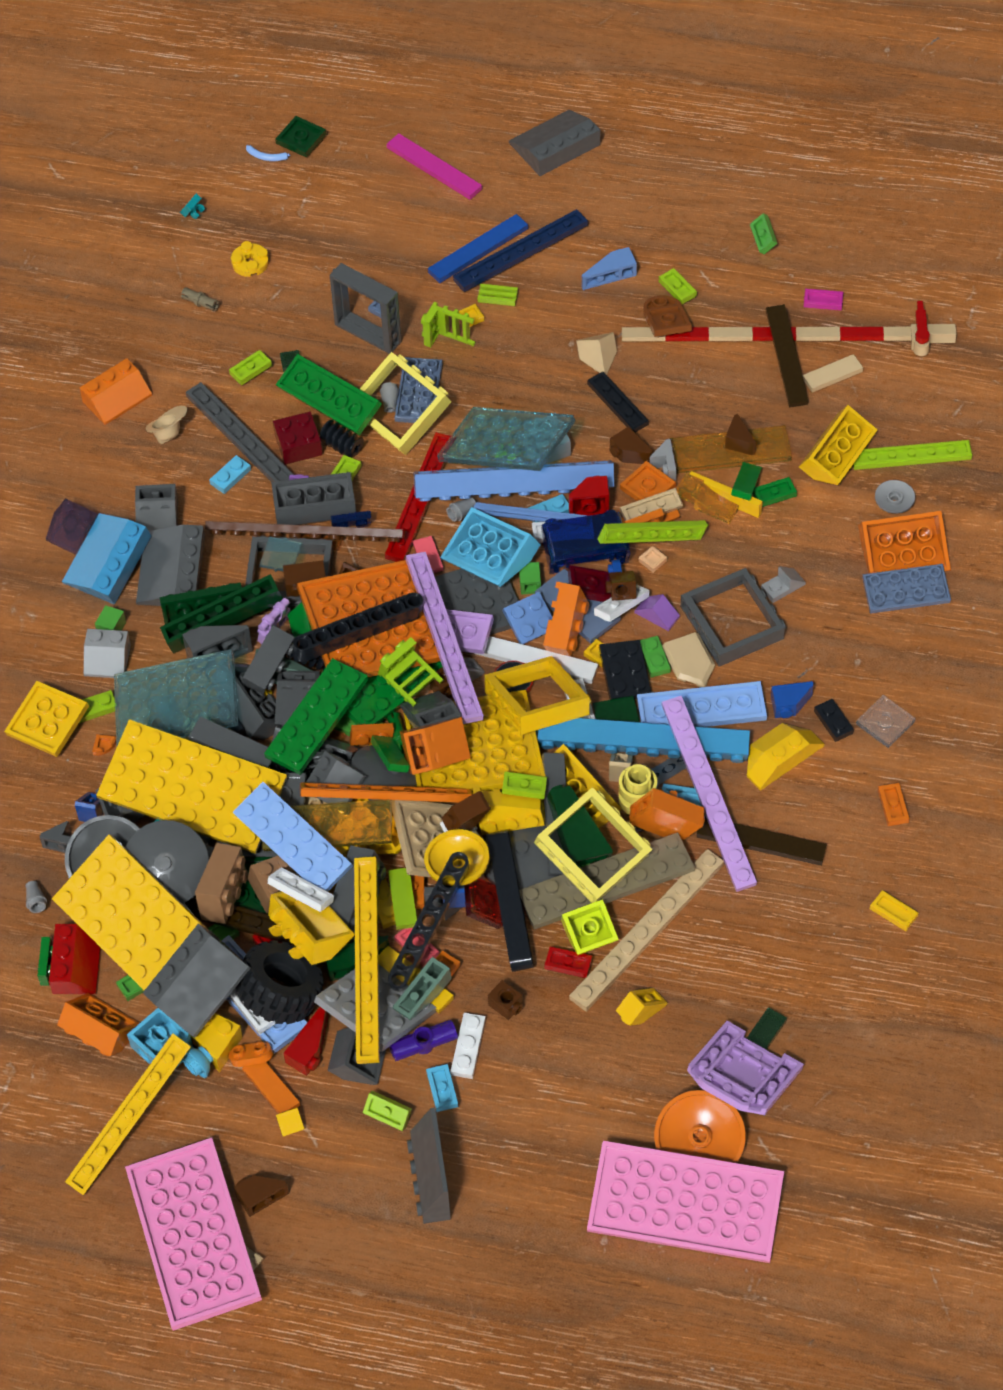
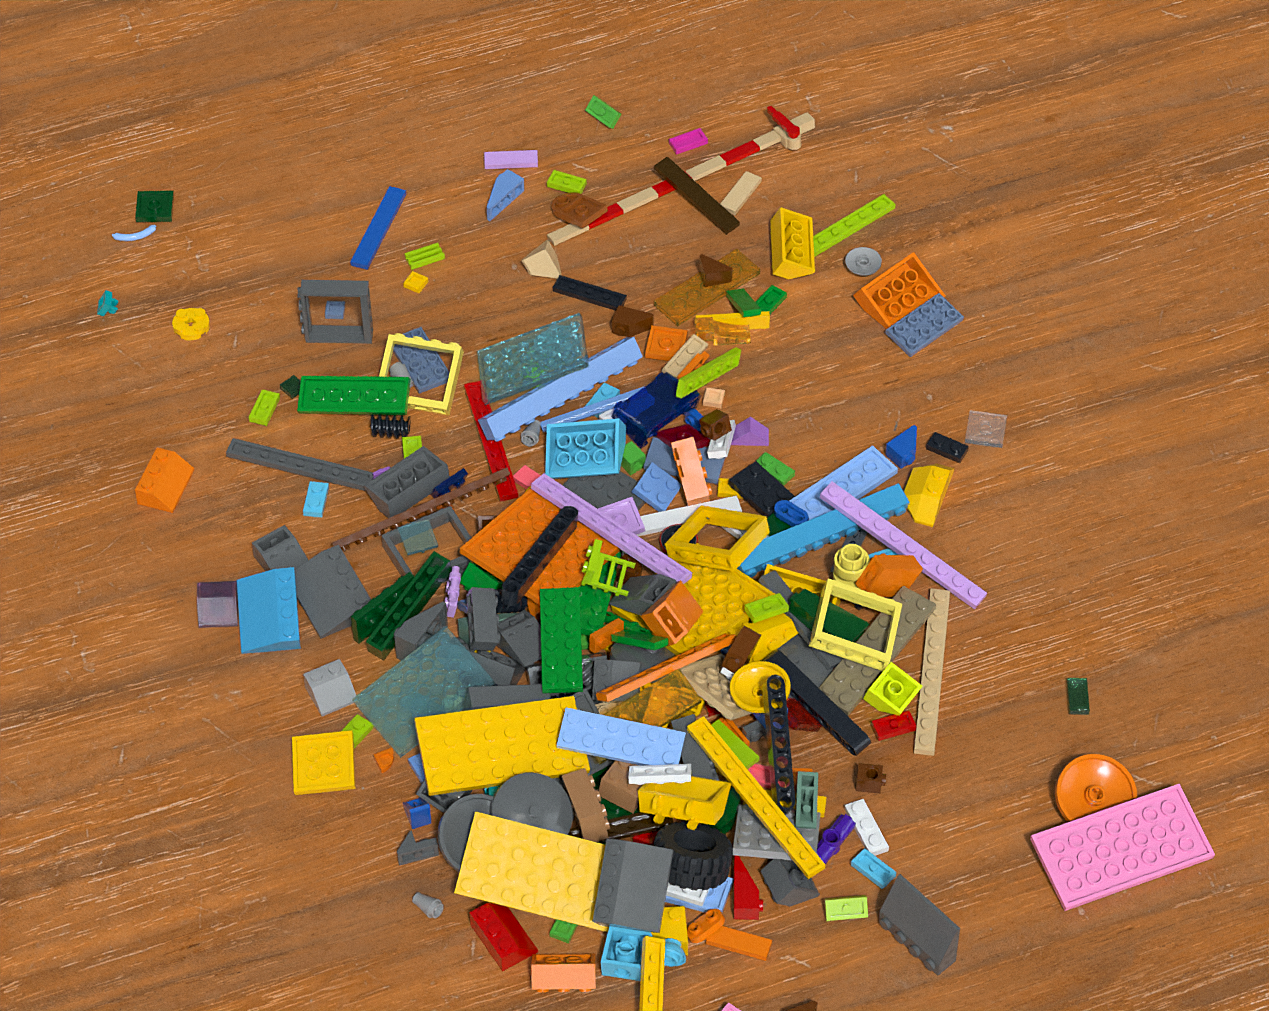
camera: 35 degrees left, 5 degrees down
(45, 961) = (476, 942): green plate -> none
(111, 619) = (312, 658): bright green brick -> none
(167, 425) = (232, 483): tan piece -> none
(200, 299) = (175, 374): dark tan pin -> none
(290, 1121) = (777, 958): yellow tile -> none
(297, 437) = (352, 442): dark red brick -> none
(300, 573) = (450, 543): reddish brown brick -> none
(434, 166) = (288, 180): dark pink tile -> none
(437, 322) = (398, 296): lime plate -> none
(520, 250) = (416, 213): dark blue plate -> none
(557, 141) = (375, 114): dark grey slope -> none
(590, 497) = (636, 371): red slope -> none
(618, 763) = (817, 562): tan slope -> none
(630, 709) = (794, 514): none -> blue plate
(640, 1006) = (974, 728): yellow slope -> none
(645, 240) = (511, 159): none -> lavender tile
(664, 459) = (667, 317): light grey slope -> none
(689, 659) = (803, 457): tan tile -> none
(742, 1071) = (1093, 730): lavender wedge -> none
(746, 646) = (801, 430): dark grey window -> none
(773, 843) = (979, 558): dark brown tile -> none
(783, 584) = (828, 368): light grey slope -> none
(893, 804) = (1041, 485): orange plate -> none
(894, 910) = (1101, 561): yellow tile -> none

